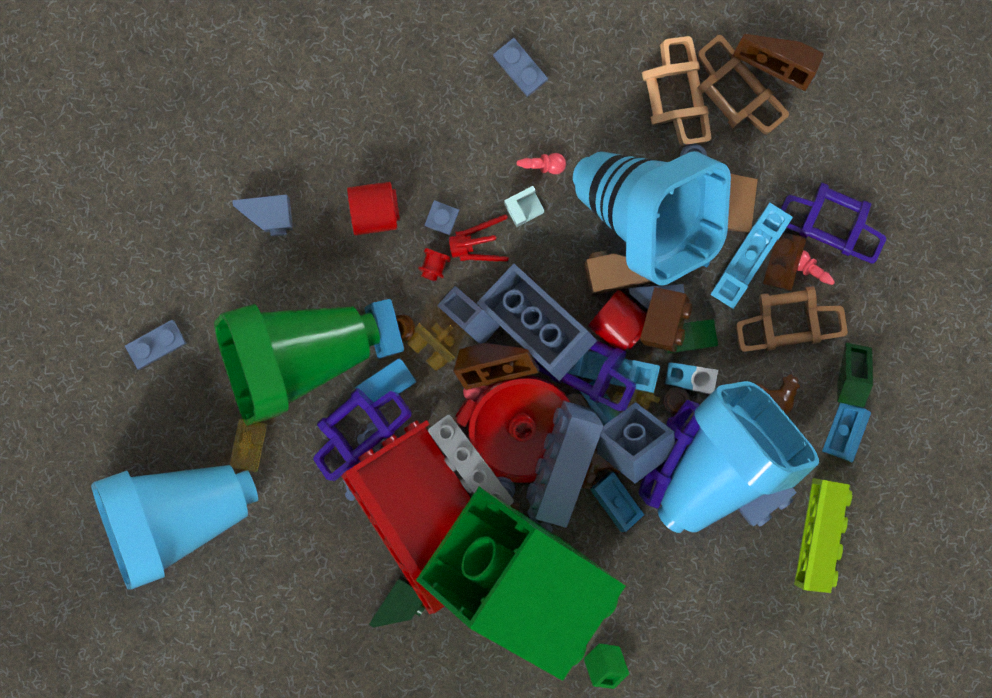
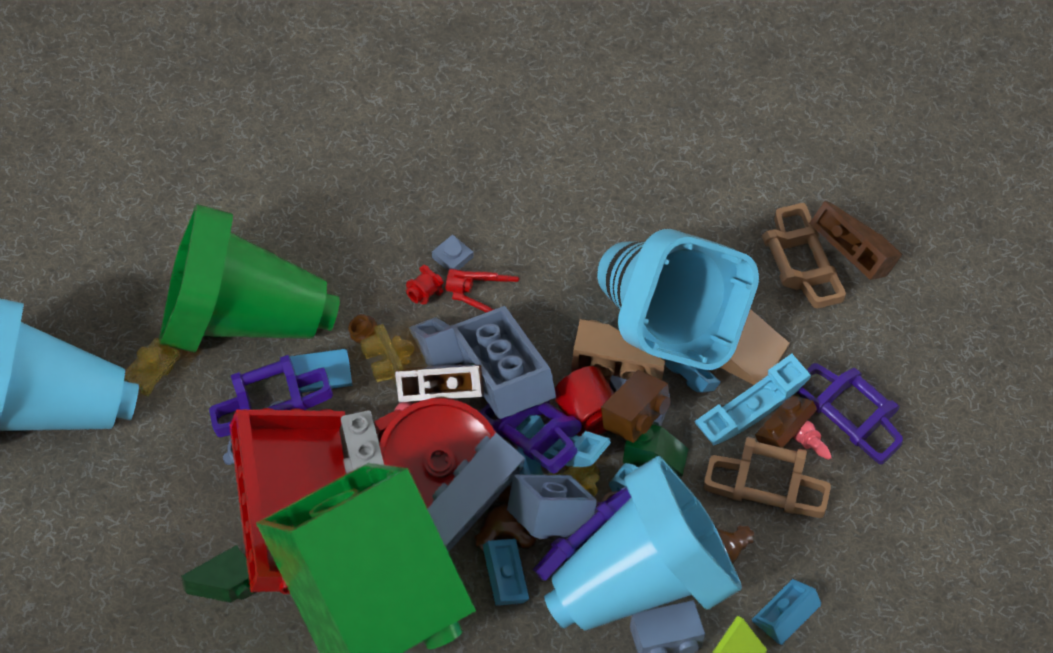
camera: 20 degrees right, 30 degrees down
(155, 344) = (110, 251): sand blue plate -> none
(268, 213) = (283, 181): sand blue slope -> none
(373, 208) = (388, 212): red piece -> none
(388, 328) = (347, 321): dark azure slope -> none
(520, 67) = (593, 162): sand blue plate -> none
(524, 206) = (539, 272): light aqua panel -> none
(554, 163) = (586, 251): coral bar -> none
(676, 116) = (748, 217): light nougat bar -> none
(855, 375) = (816, 555): dark green slope -> none

